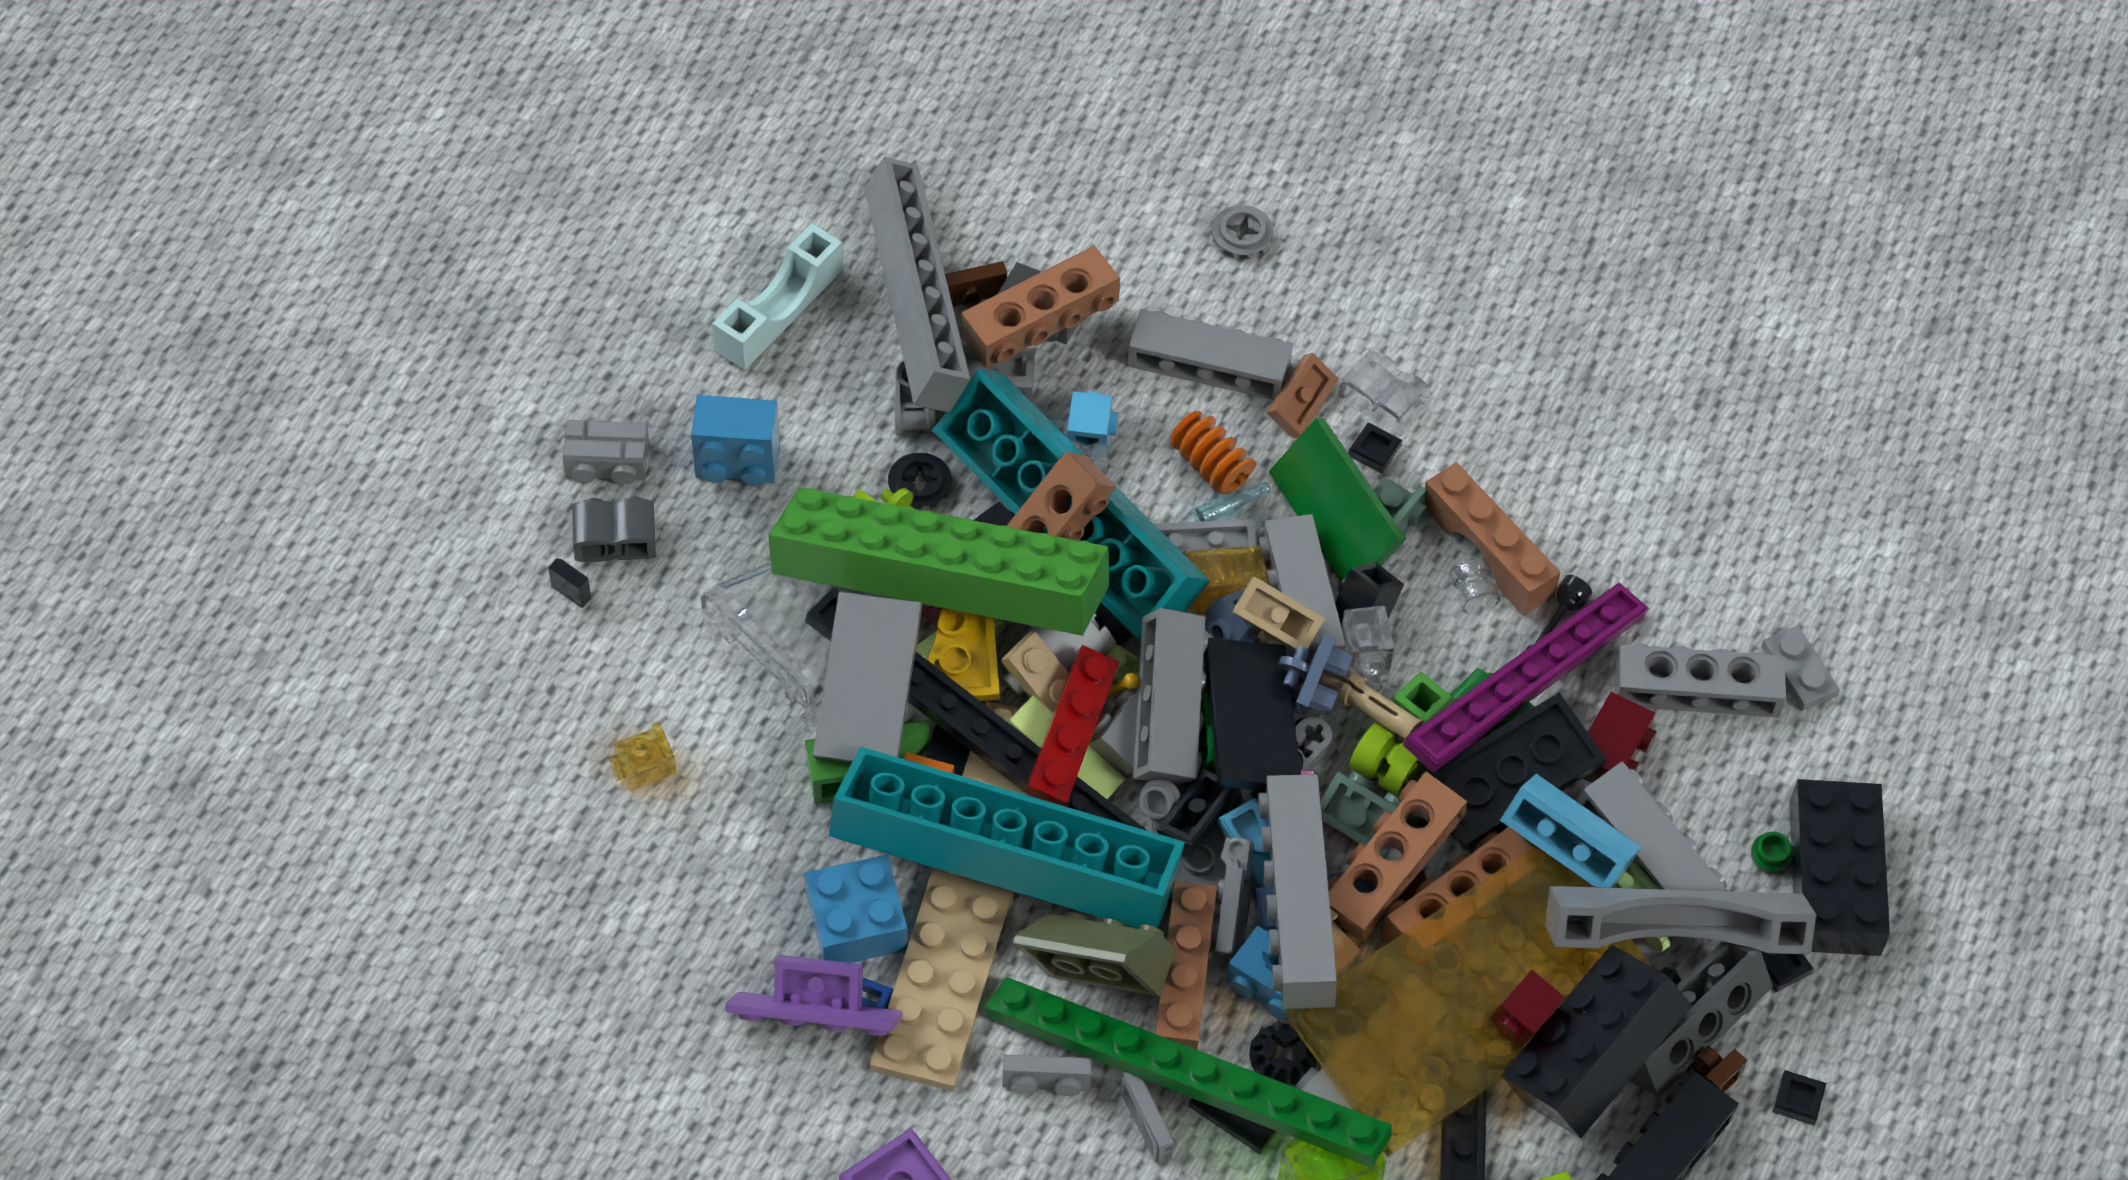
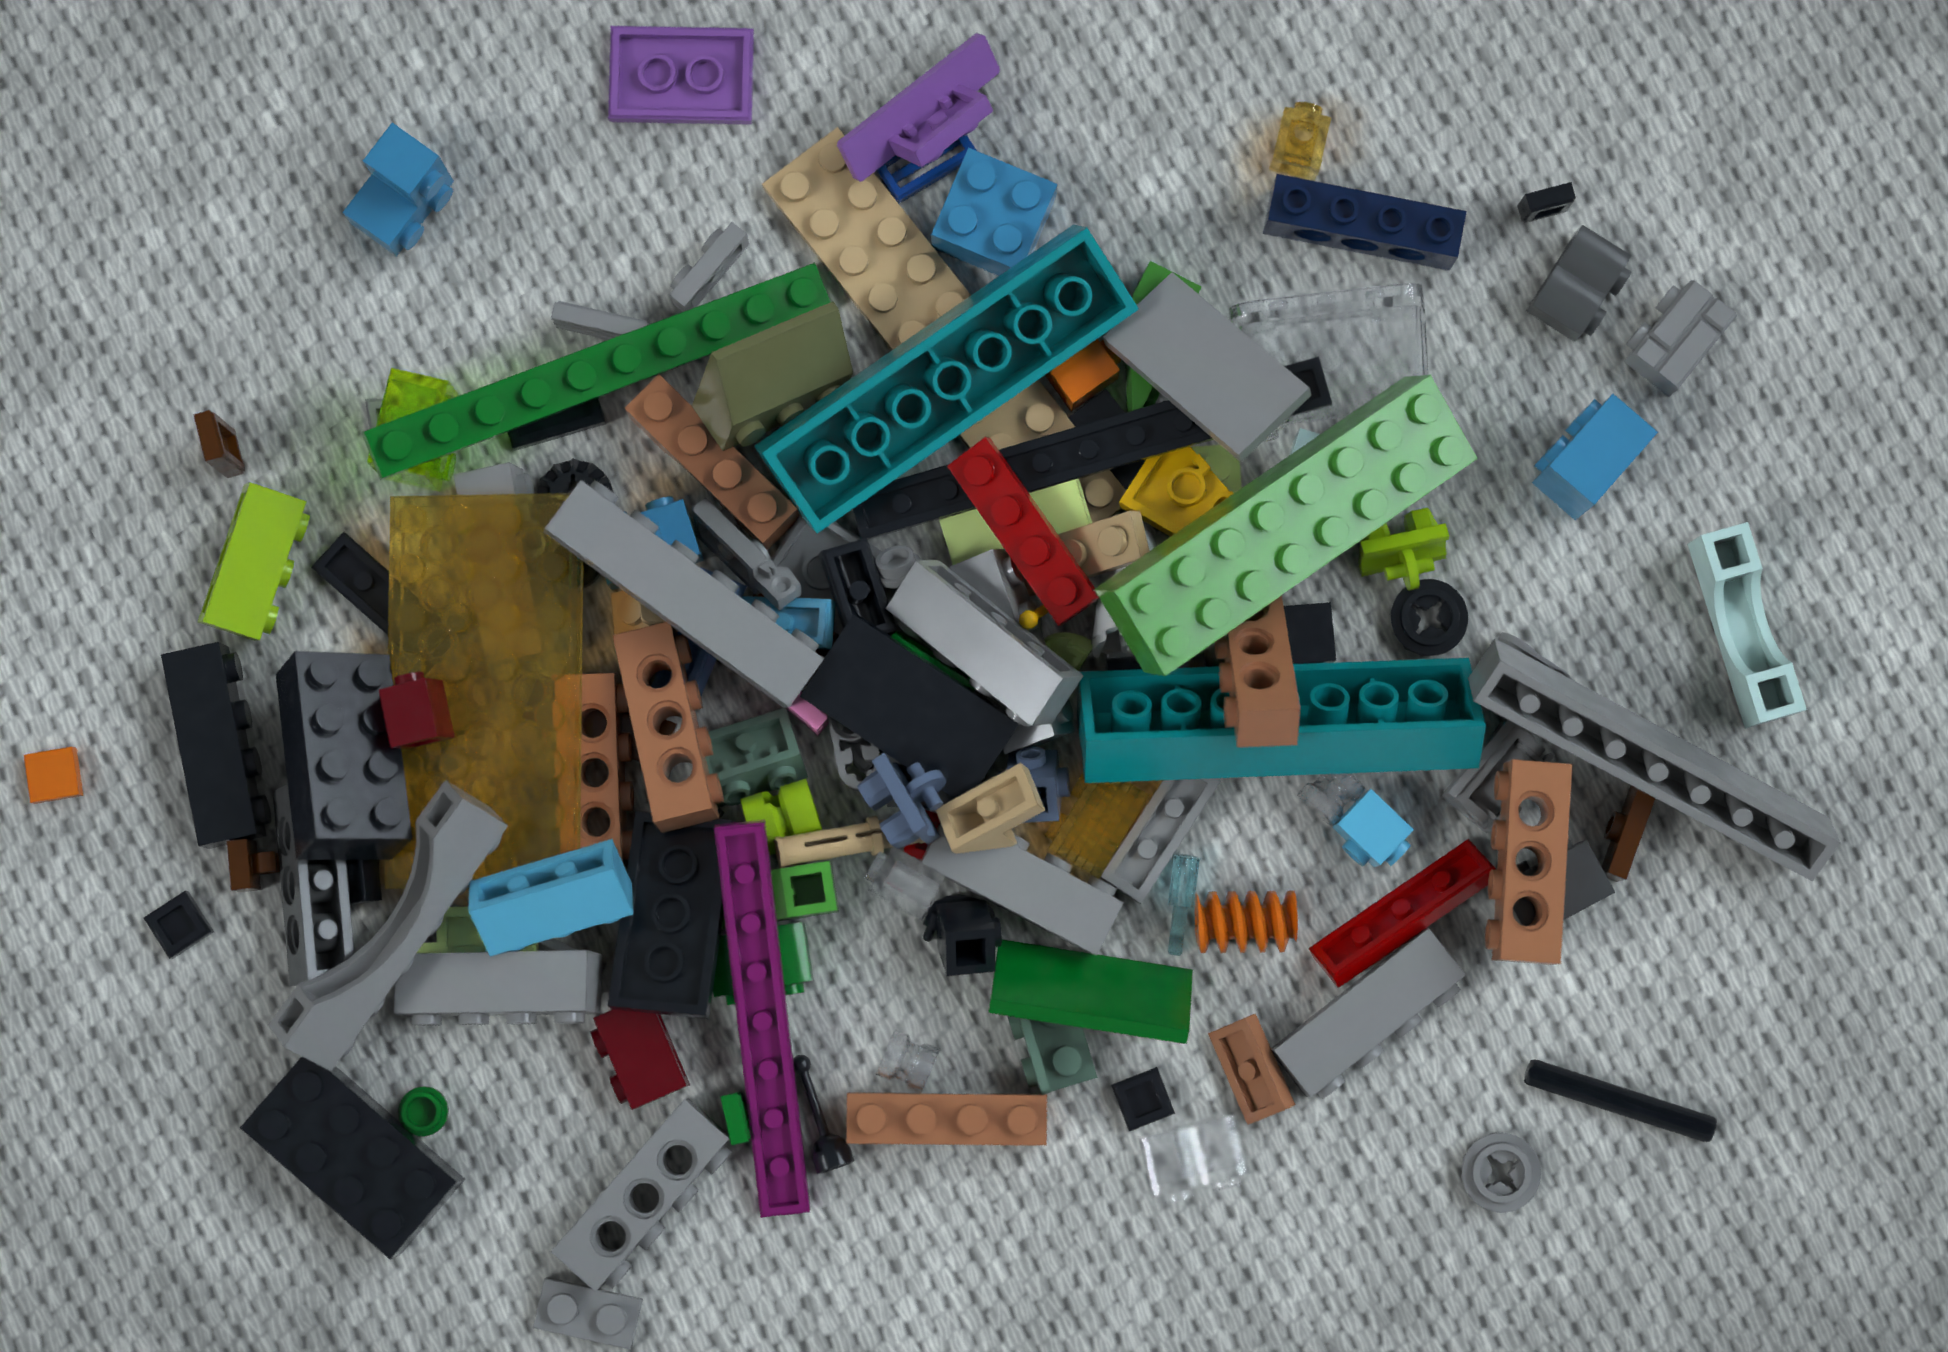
camera: 125 degrees right, 25 degrees up
(674, 680) = (1364, 222): none -> dark blue brick
(1128, 375) = (1402, 913): none -> red tile
(1141, 198) = (1620, 1100): none -> black axle
(1601, 659) = (736, 1118): none -> green tile

